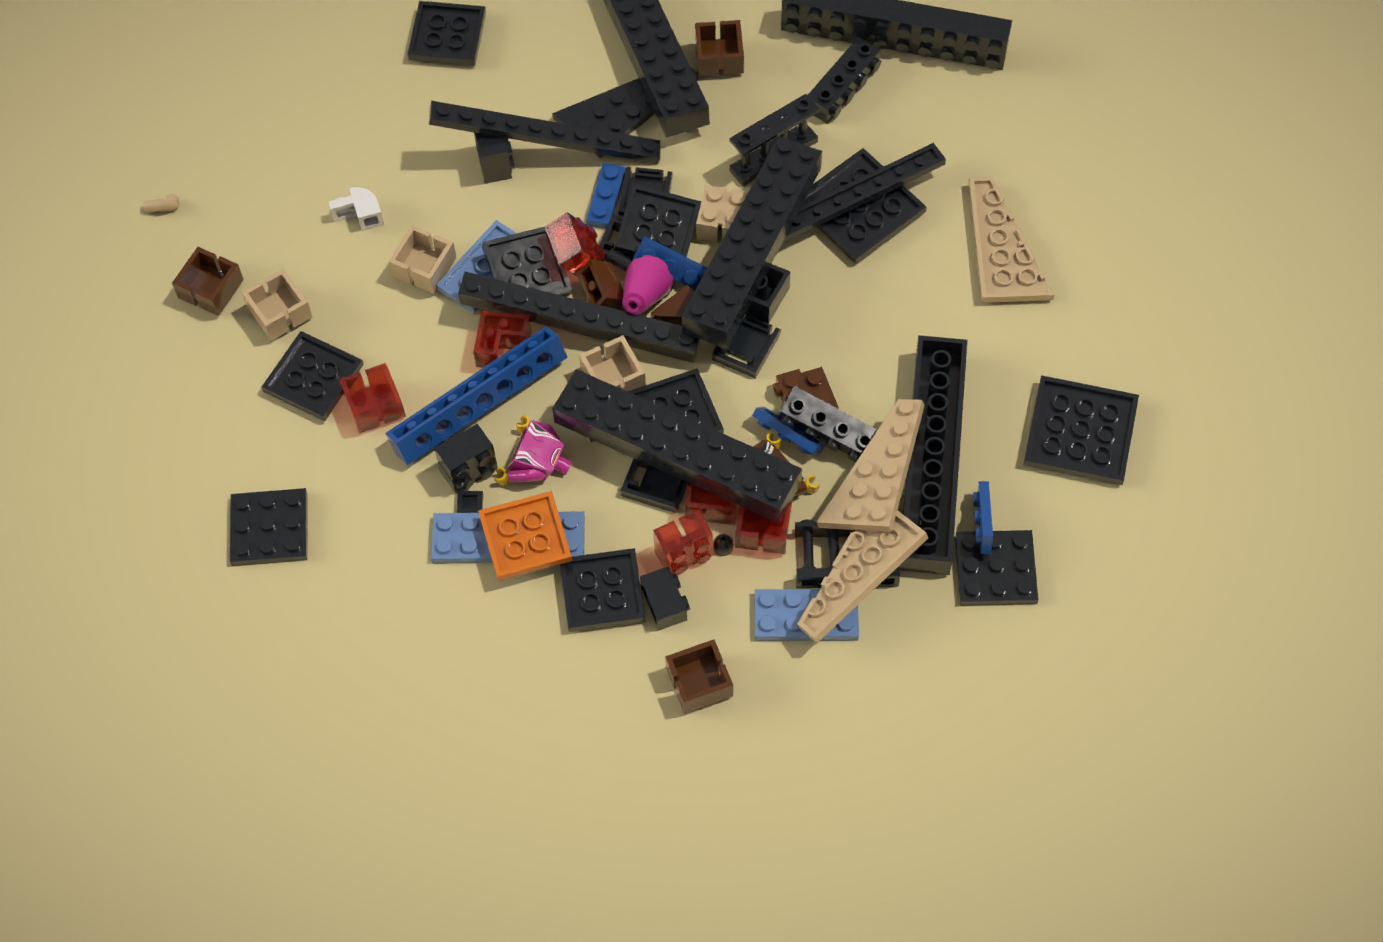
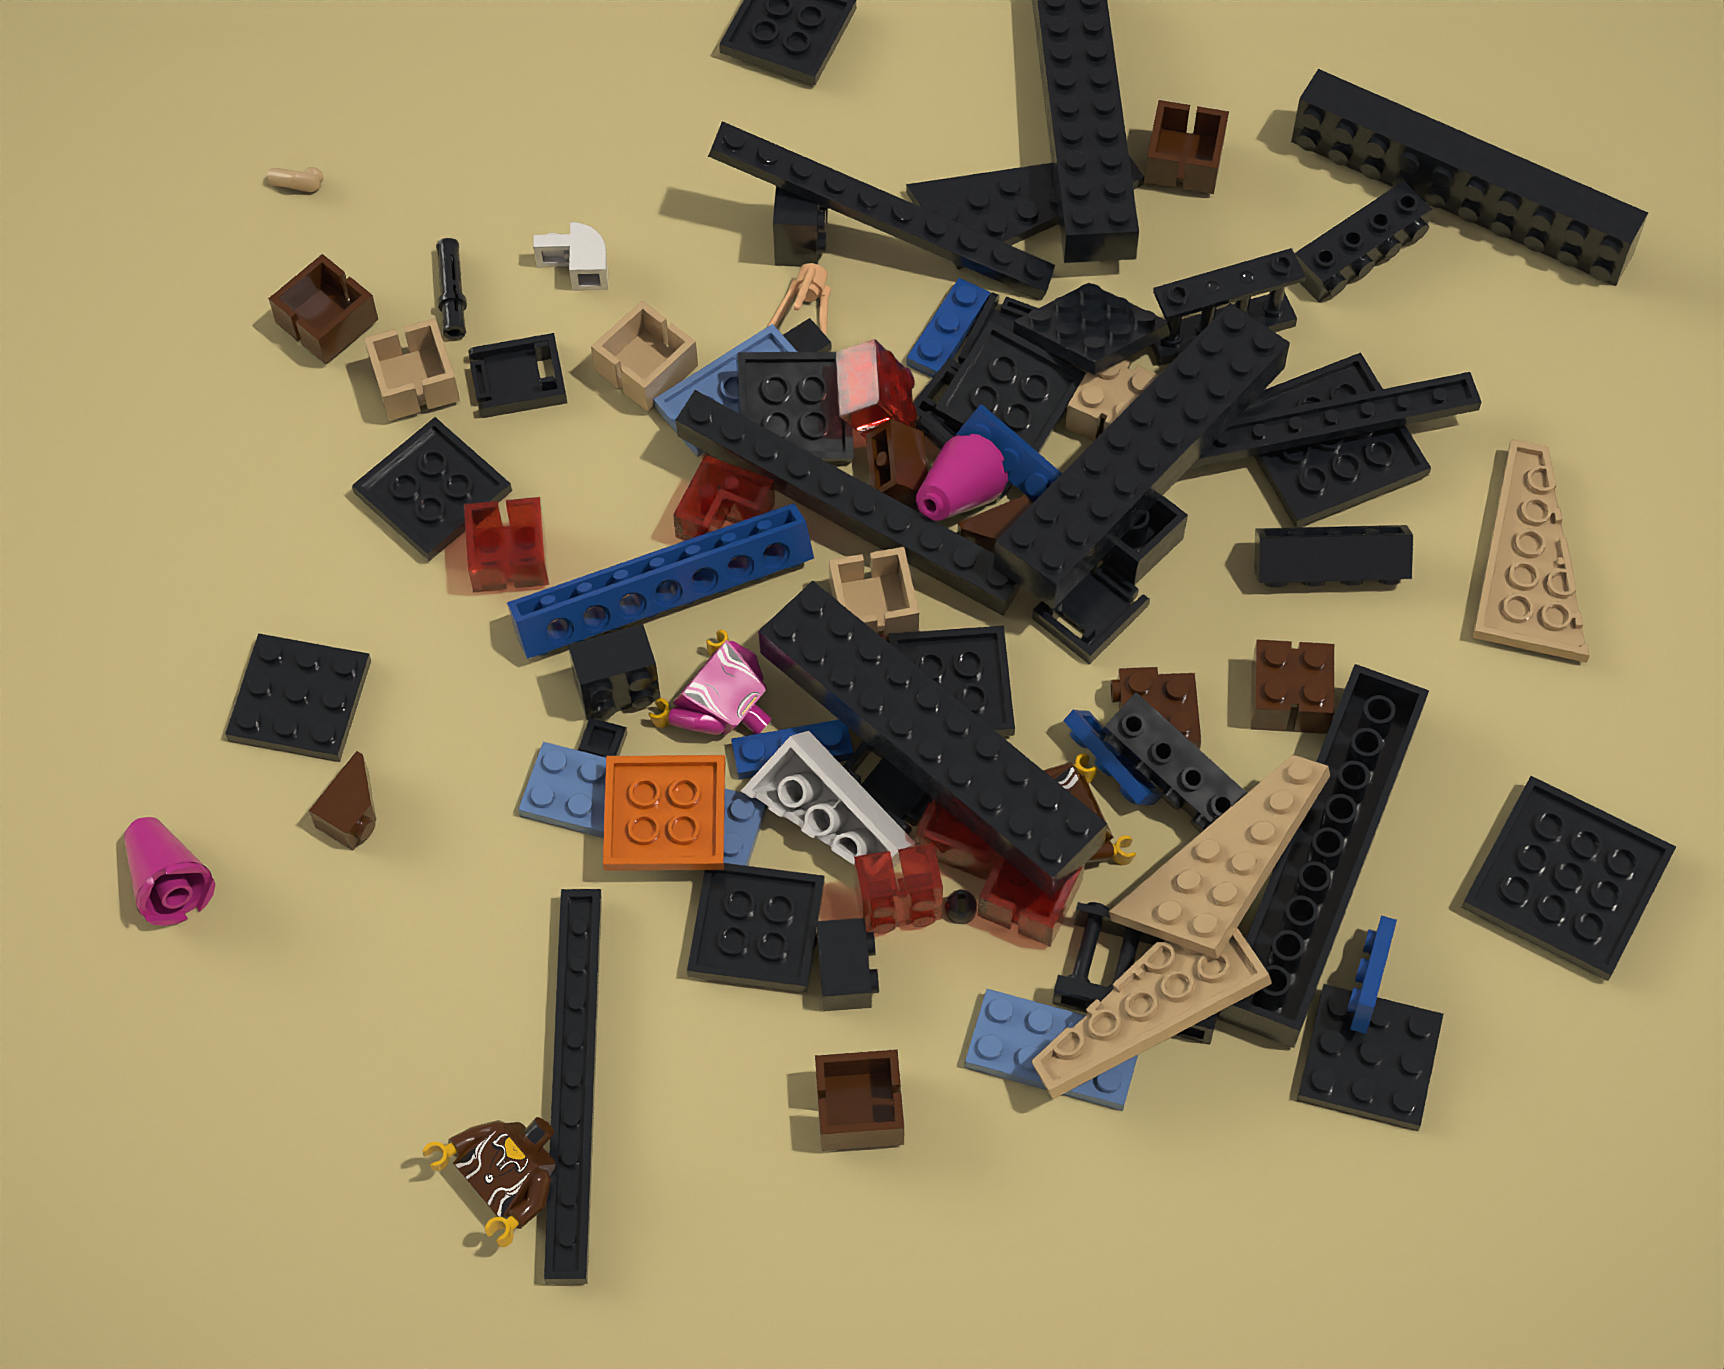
camera: 15 degrees right, 0 degrees up
(220, 656) = (165, 873): none -> dark pink cone
(287, 256) = (452, 301): none -> black pin
(322, 585) = (347, 805): none -> reddish brown slope
(340, 296) = (509, 376): none -> black container
(494, 777) = (504, 1168): none -> reddish brown torso
(511, 191) = (808, 287): none -> light nougat plant
(520, 223) = (808, 338): none -> black tile
(520, 717) = (573, 1087): none -> black plate
(589, 477) = (755, 750): none -> blue plate
(622, 502) = (825, 800): none -> white wedge
(696, 173) = (1091, 328): none -> black plate
(881, 354) = (1292, 678): none -> reddish brown piece
(884, 273) = (1333, 554): none -> black brick

